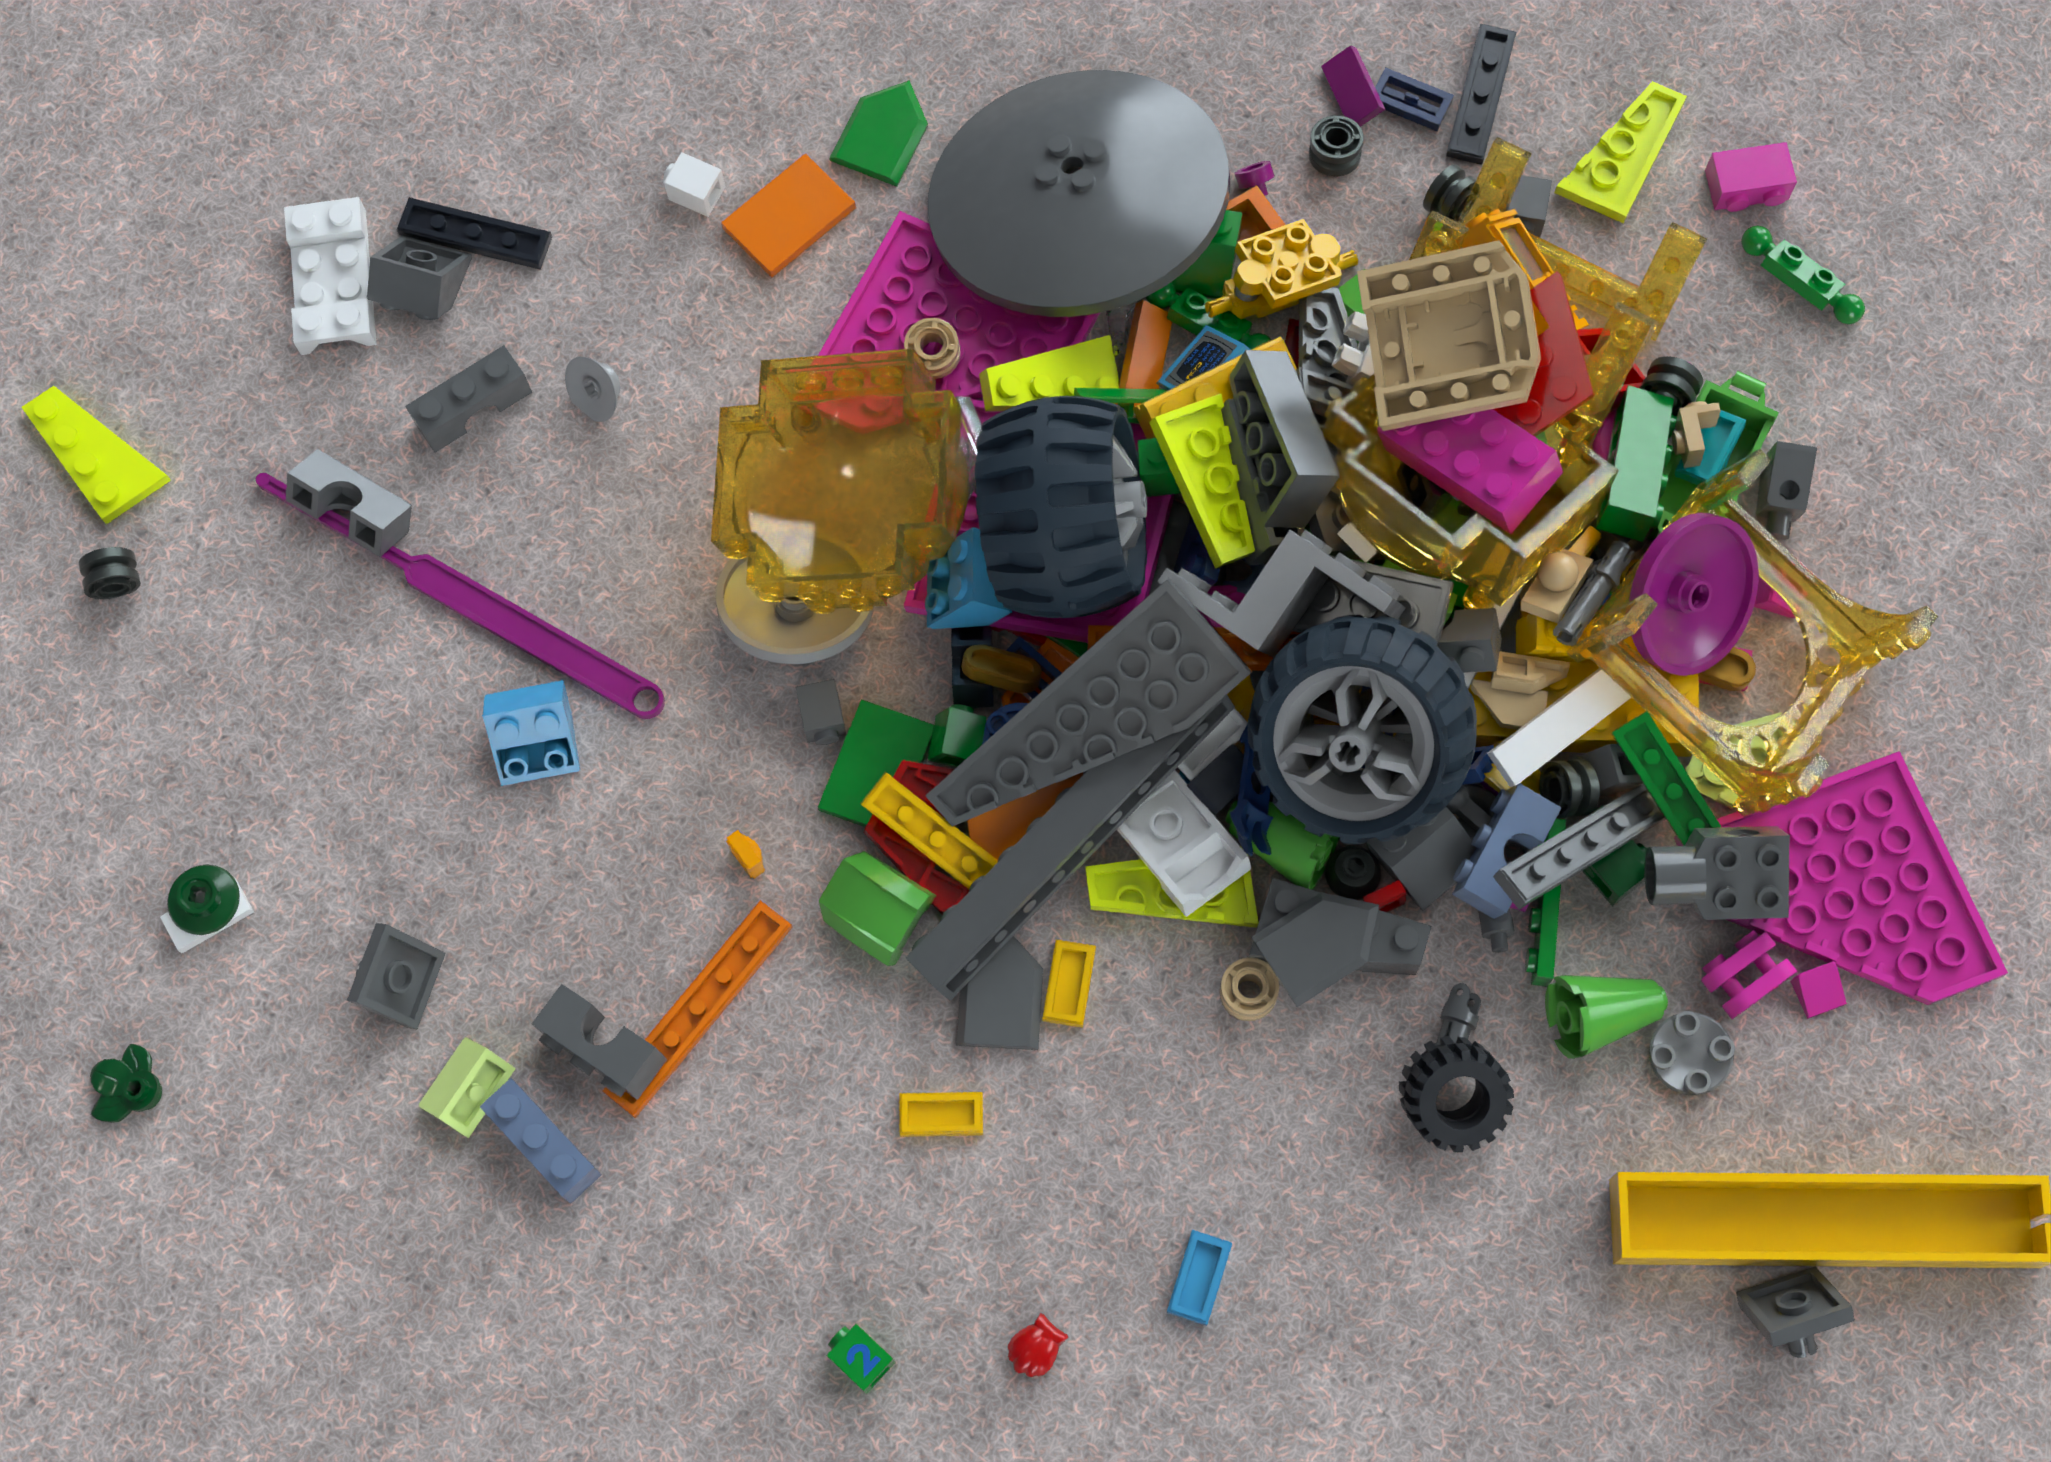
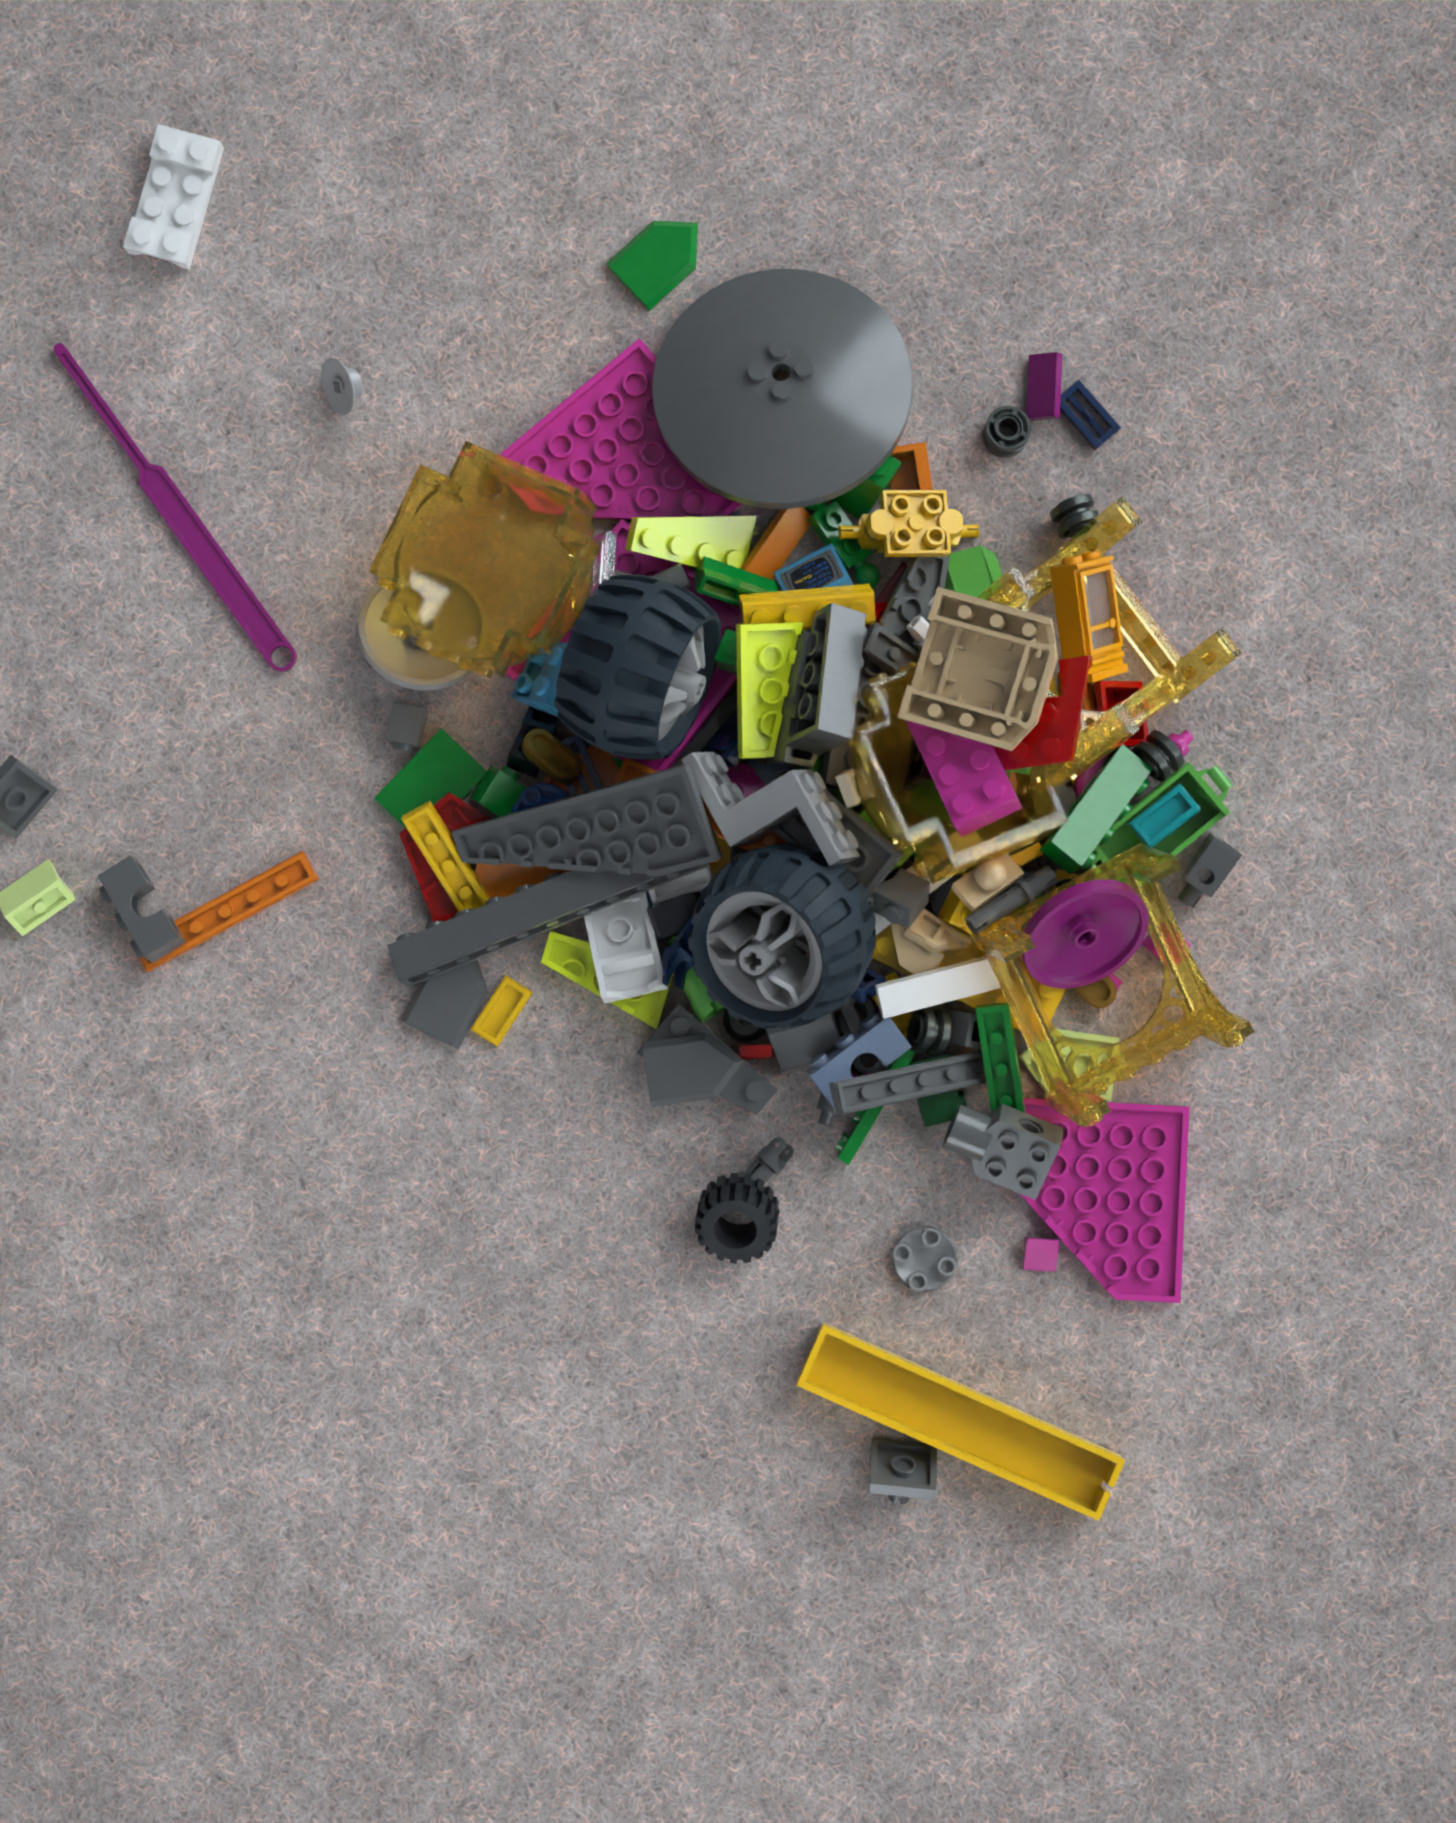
camera: 20 degrees right, 15 degrees up
(326, 484) = (105, 377): dark grey arch -> none
(417, 277) = (241, 228): dark grey slope -> none
(446, 408) = (259, 347): dark grey arch -> none
(474, 233) = (301, 207): black tile -> none
(531, 732) = (184, 646): dark azure slope -> none
(540, 1141) = (65, 950): sand blue arch -> none
(694, 184) = (487, 242): white brick -> none
(747, 853) = (306, 812): light orange tile -> none
(788, 215) = (553, 300): orange tile -> none
(859, 1357) = (236, 1215): green brick -> none
(874, 906) = (383, 893): bright green slope -> none
(938, 331) = (601, 460): tan wheel -> none
(941, 1114) = (368, 1066): yellow tile -> none
(1036, 1347) = (363, 1261): red animal -> none
(1199, 1277) = (500, 1262): dark azure tile -> none
(1249, 1008) = (614, 1081): tan wheel -> none
(1255, 175) = (931, 430): magenta tile -> none
(1481, 94) = (1144, 434): black tile -> none
(1531, 203) = (1131, 551): dark grey brick -> none
(1600, 1010) = (874, 1202): bright green cone -> none
(1620, 162) = (1224, 542): neon yellow wing -> none
(1688, 437) = (1145, 806): tan bracket -> none
(1750, 177) = (1317, 602): dark pink brick -> none
(1751, 950) = (1005, 1206): dark pink brick -> none
(1803, 274) = (1316, 700): green plate -> none

